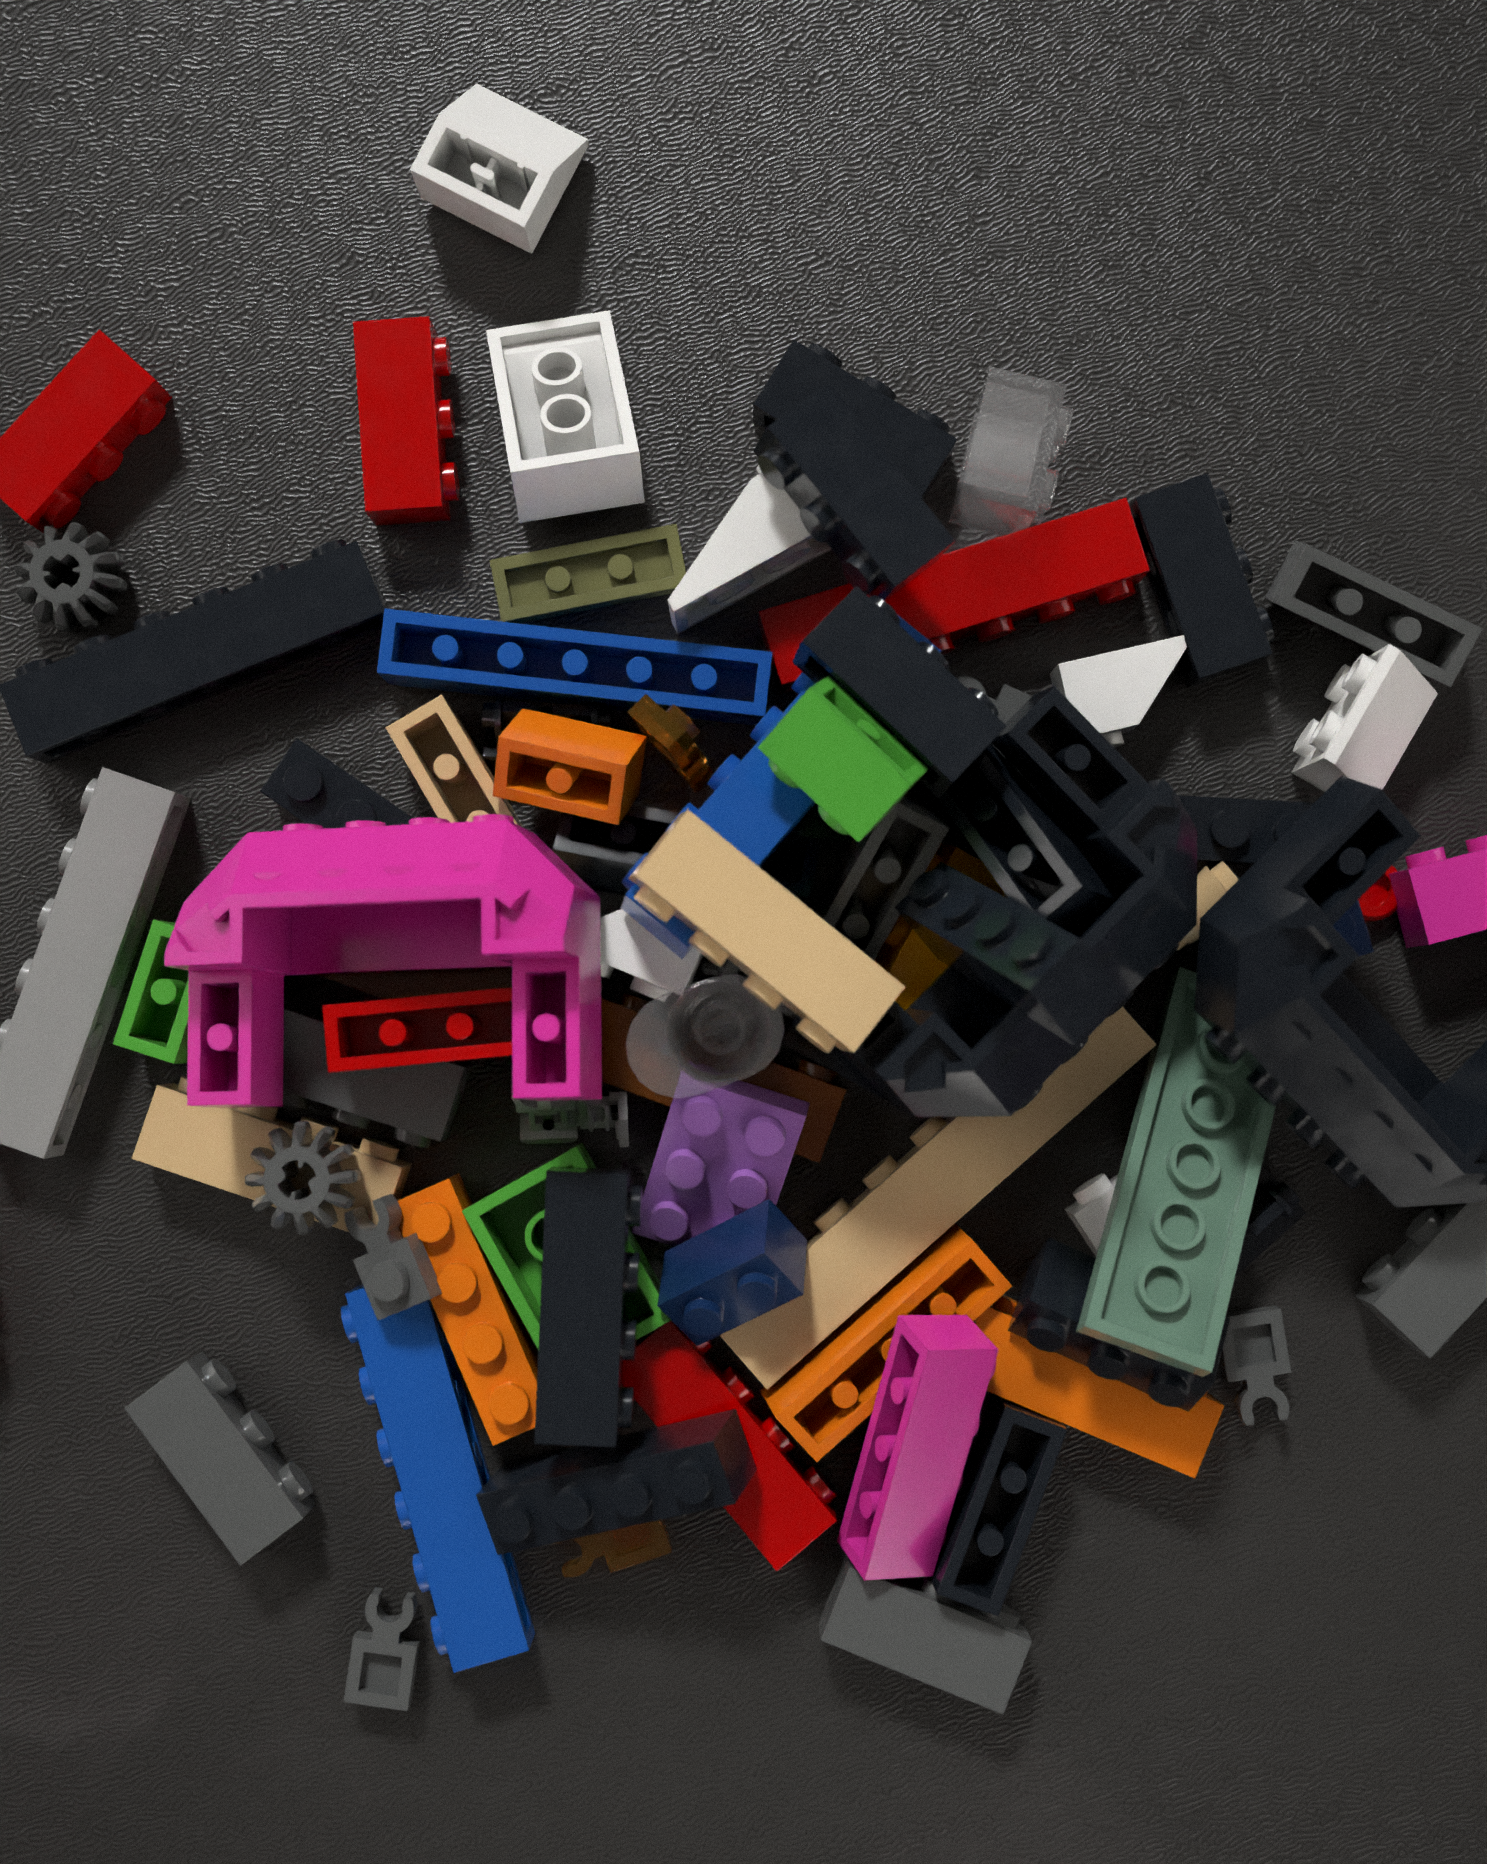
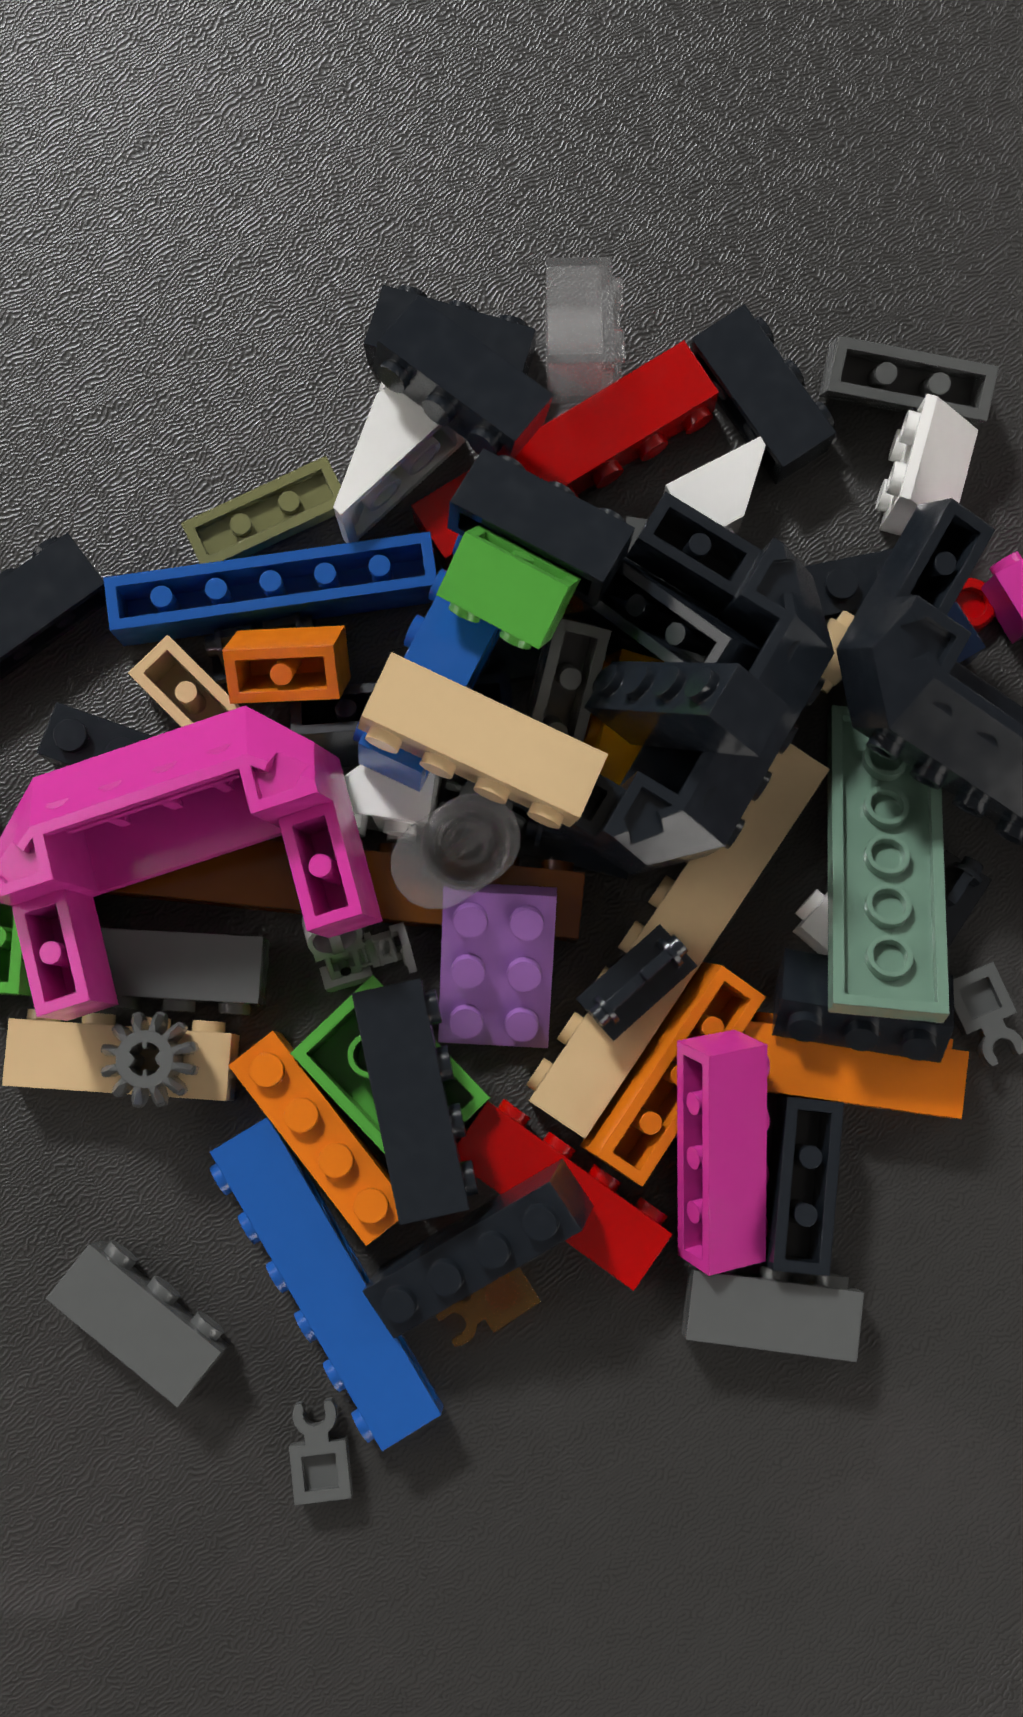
camera: 15 degrees left, 5 degrees down
(395, 1268) = (246, 1115): dark grey plate -> none
(404, 420) = (84, 431): red brick -> none
(418, 1030) = (217, 908): red brick -> none
(497, 165) = (108, 214): white slope -> none
(565, 416) = (215, 396): white slope -> none
(673, 737) = (366, 620): clear orange plate -> none
(733, 1273) = (530, 1046): dark blue brick -> none
(871, 1232) = (637, 981): none -> black hinge

